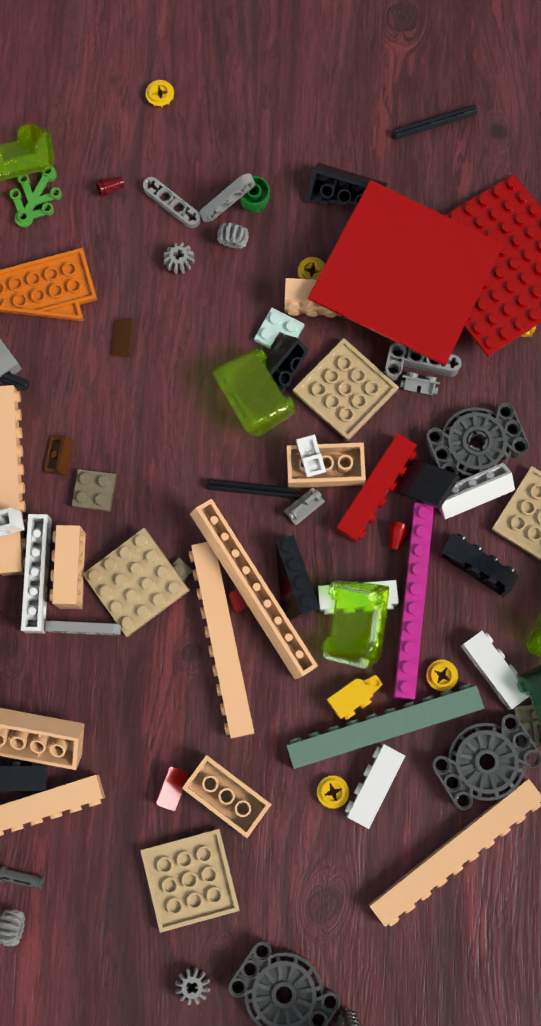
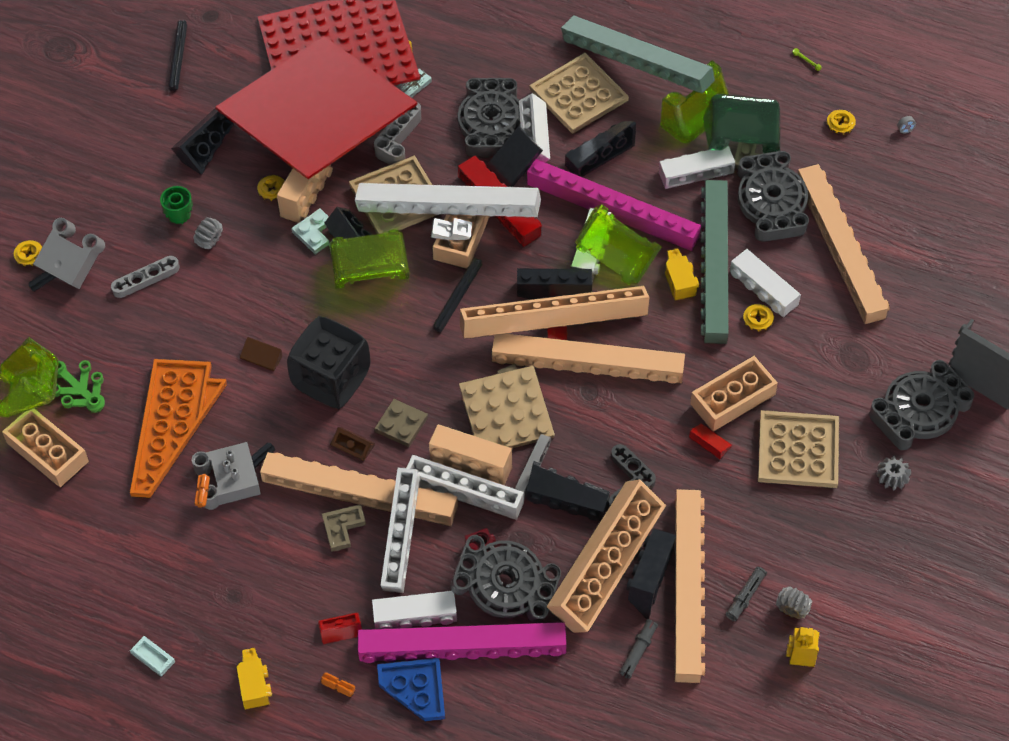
camera: 70 degrees left, 20 degrees down
(61, 671) = (566, 493): none -> black wedge
(102, 732) = (630, 458): none -> dark grey beam
(109, 185) = (101, 321): dark red cone -> none
(119, 400) = (329, 362): none -> black piece
(155, 125) = (63, 258): none -> light grey piece
(185, 260) = (206, 284): light grey gear -> none
(227, 197) = (172, 221): light grey beam -> none
(304, 506) = (491, 260): light grey hinge -> none
(342, 441) = (448, 200): none -> white brick
(397, 534) = (549, 199): red cone -> none
(427, 384) = (422, 135): light grey hinge -> none
(451, 674) = (686, 201): yellow gear -> none
(497, 359) = (413, 87): none -> light aqua tile

